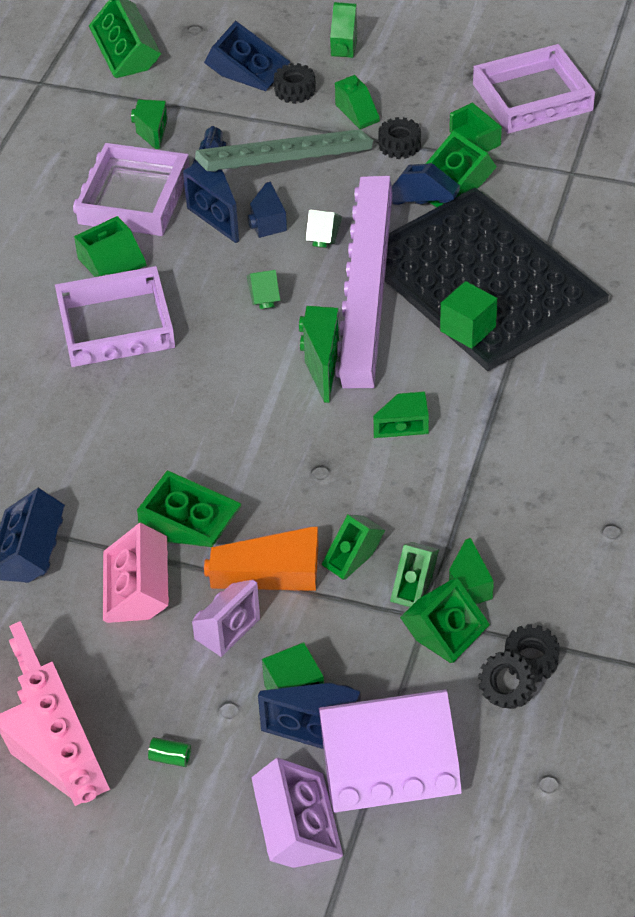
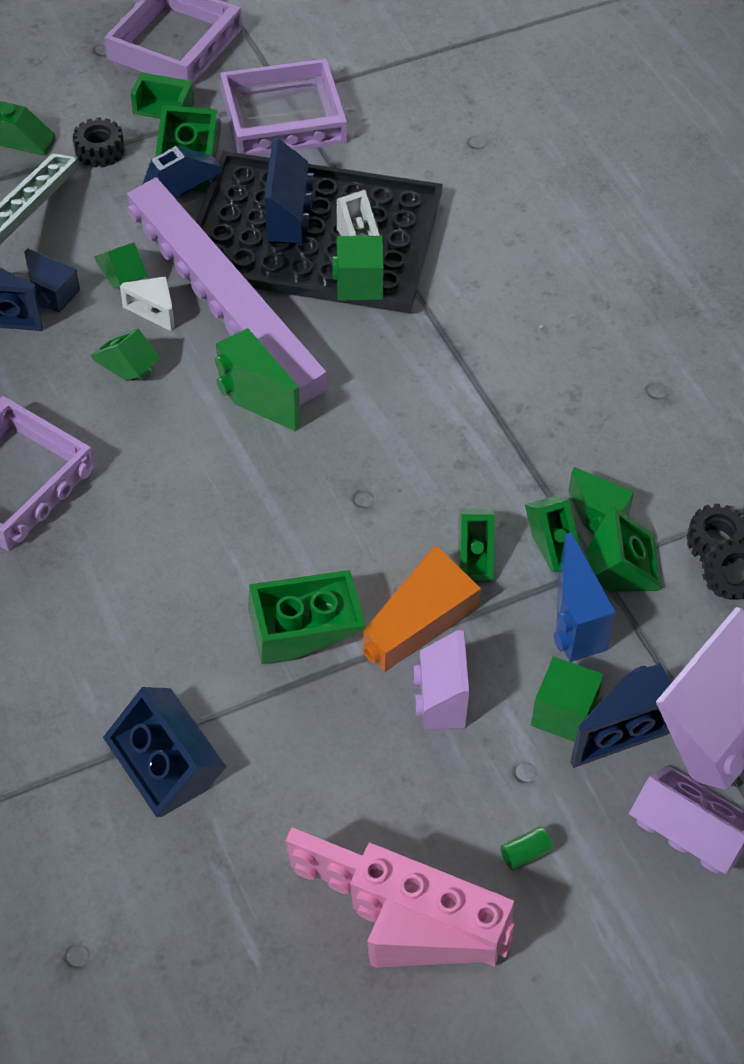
camera: 45 degrees left, 5 degrees up
(135, 576) = (312, 710): bright pink slope -> none
(320, 261) = (149, 300): none -> white slope
(366, 624) = (583, 608): none -> blue slope
(402, 416) = (391, 395): green slope -> none
(473, 235) = (287, 194): none -> dark blue slope
(505, 282) = (355, 216): none -> white slope
(553, 180) = (285, 103): none -> piece

